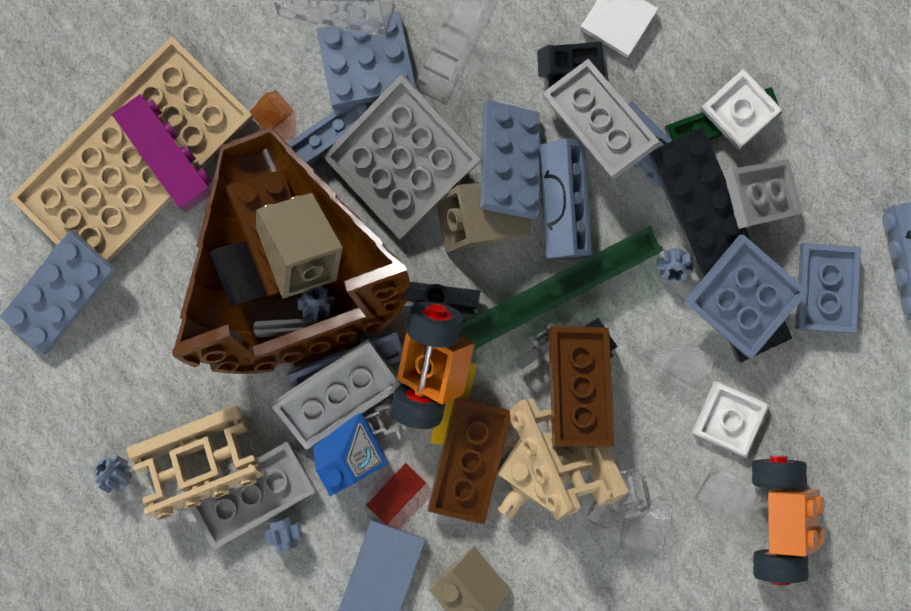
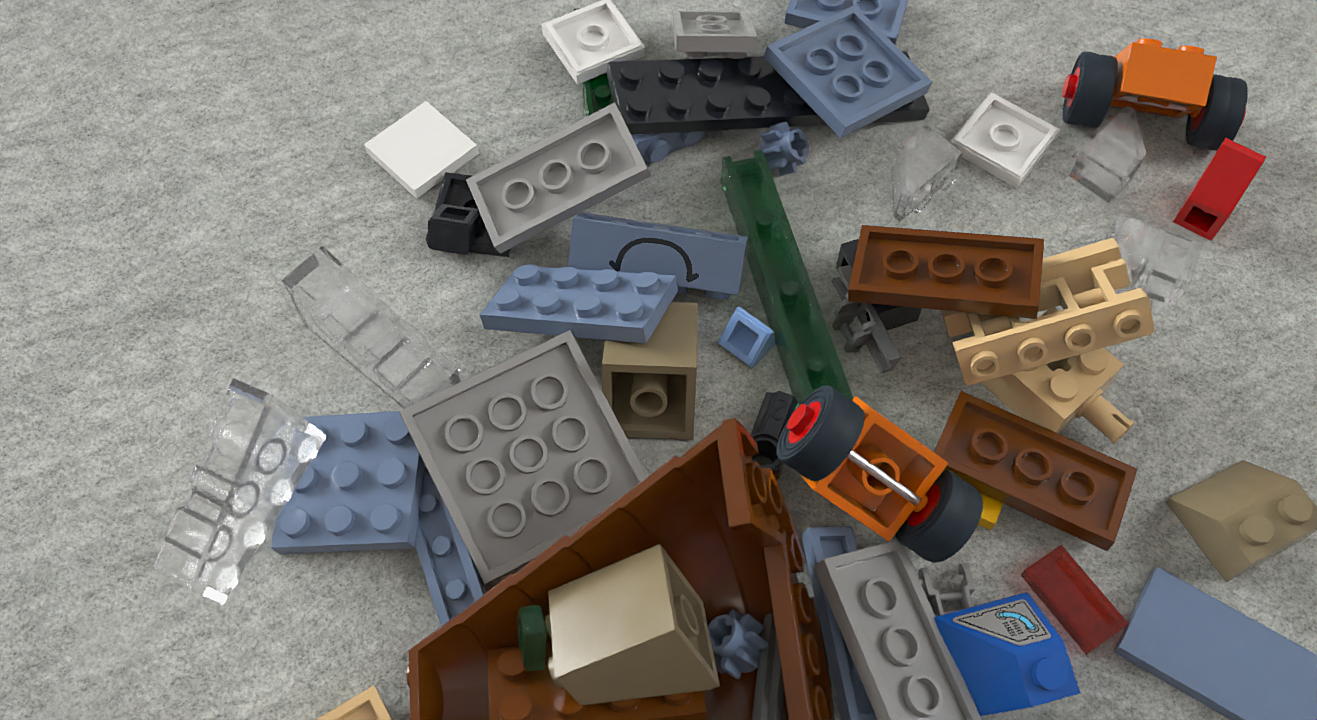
camera: 75 degrees left, 25 degrees down
(271, 110) = (378, 658): clear orange slope -> none
(286, 190) = (531, 637): none -> clear green tile
(522, 271) = (747, 337): none -> light blue slope
(709, 568) = (1219, 189): none -> red slope

